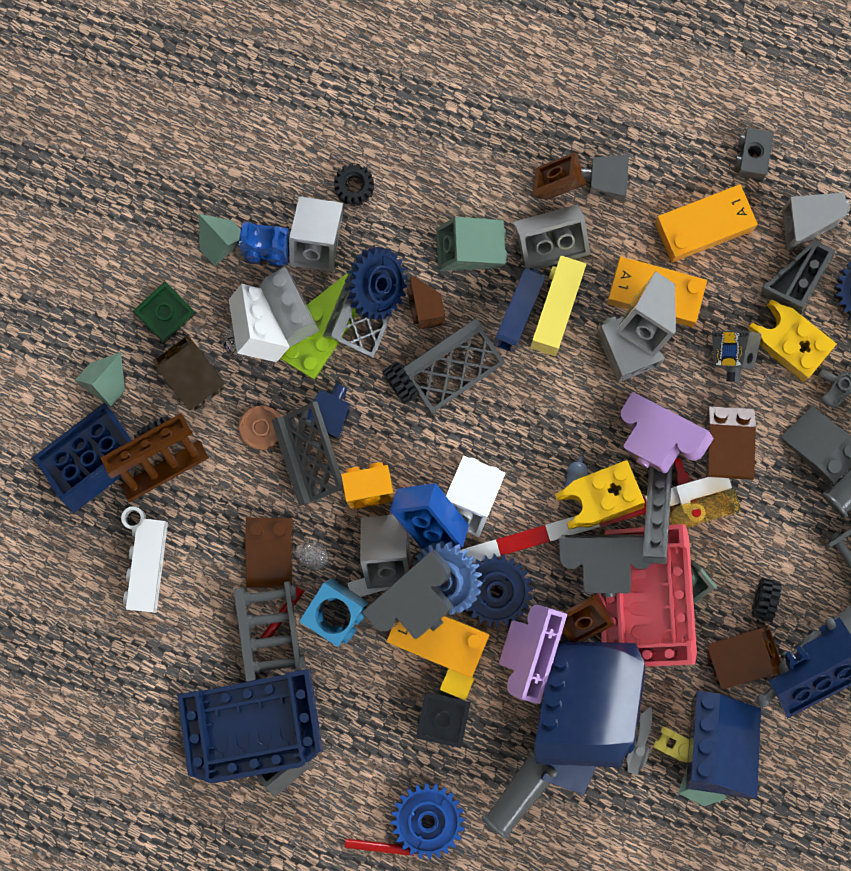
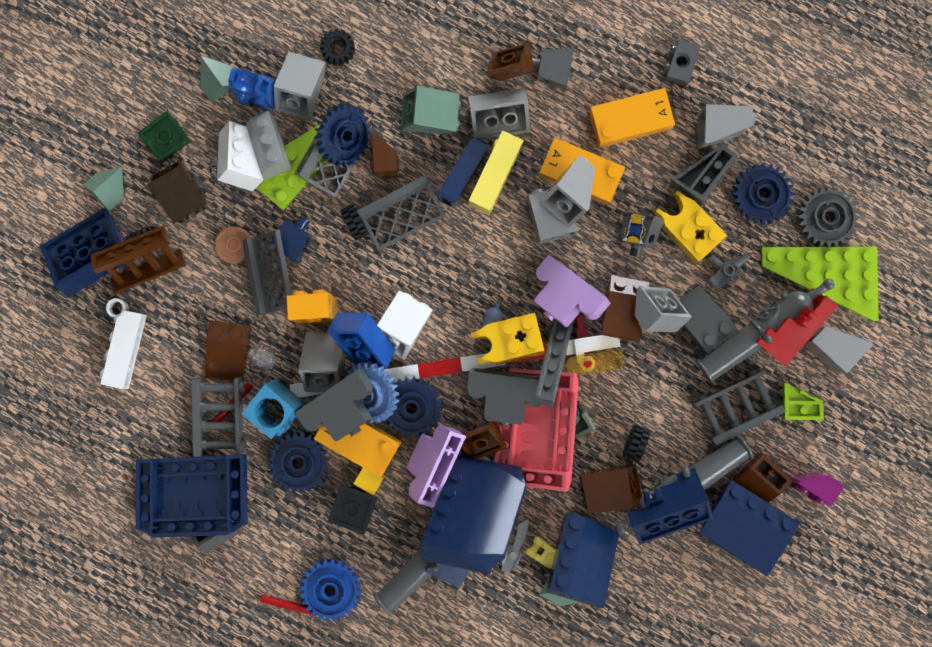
camera: 10 degrees right, 5 degrees up
(388, 673) = (288, 472): none -> dark blue gear
(771, 439) = (659, 310): none -> light grey slope

